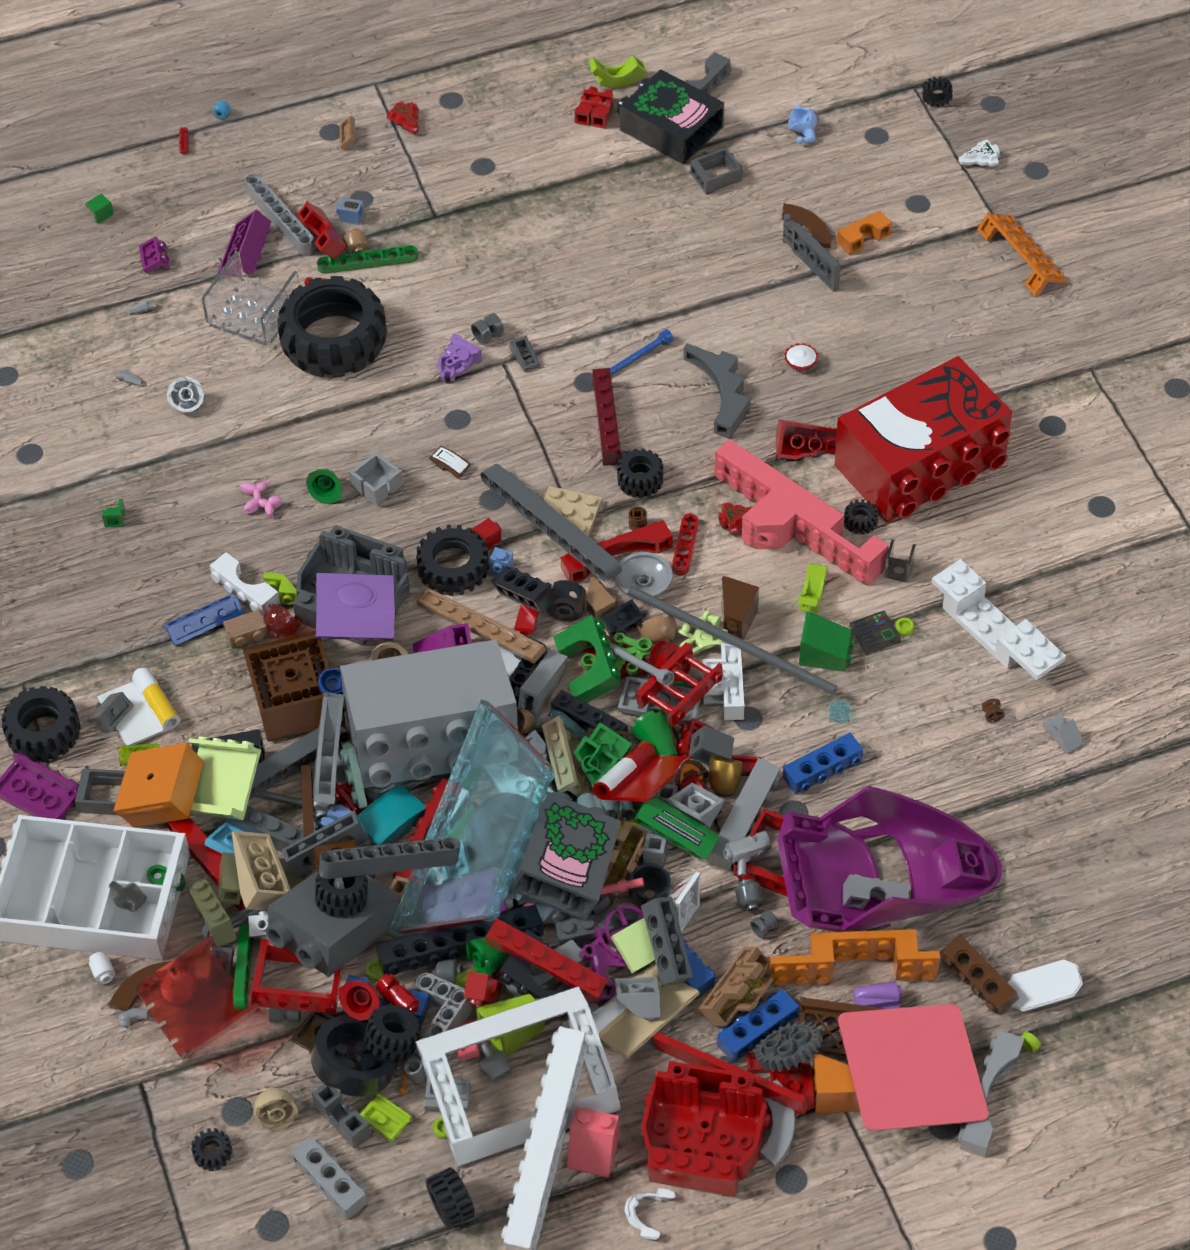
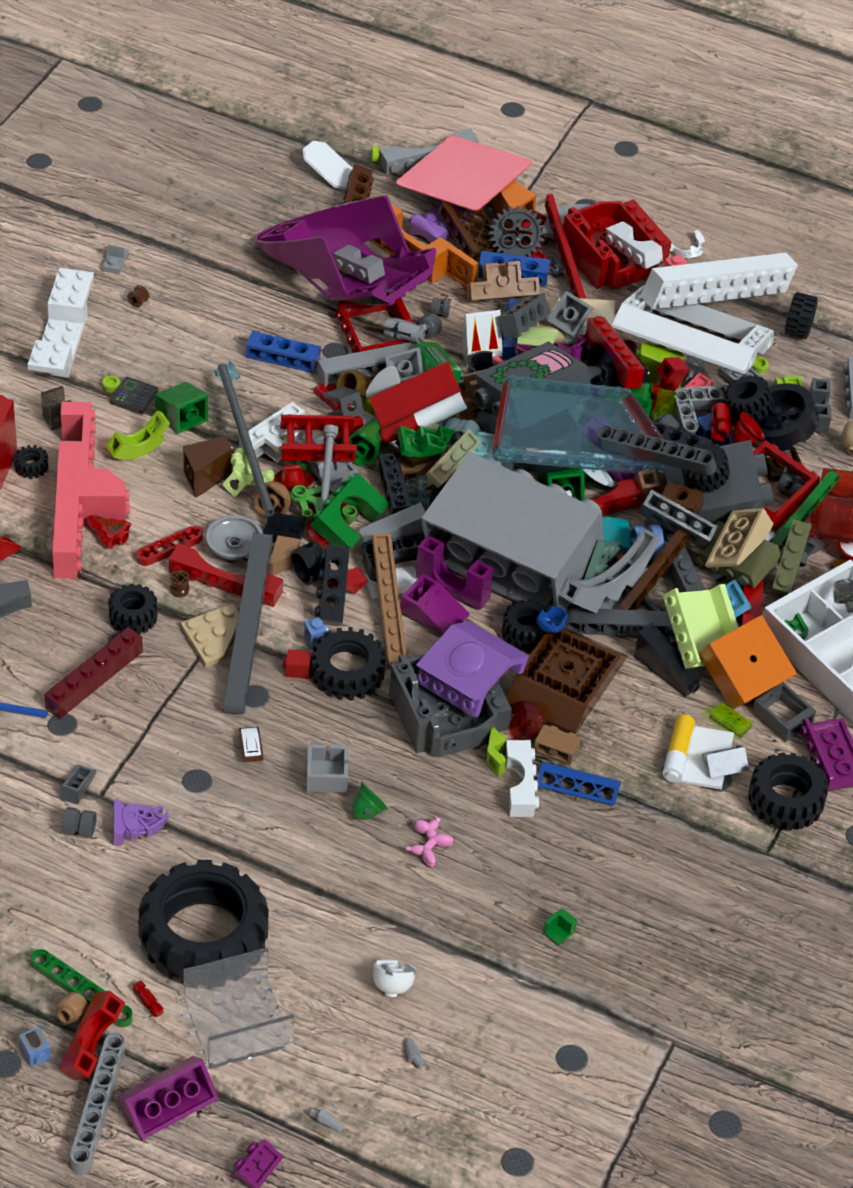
camera: 140 degrees left, 5 degrees down
(696, 1128) = (642, 252): none -> white arch

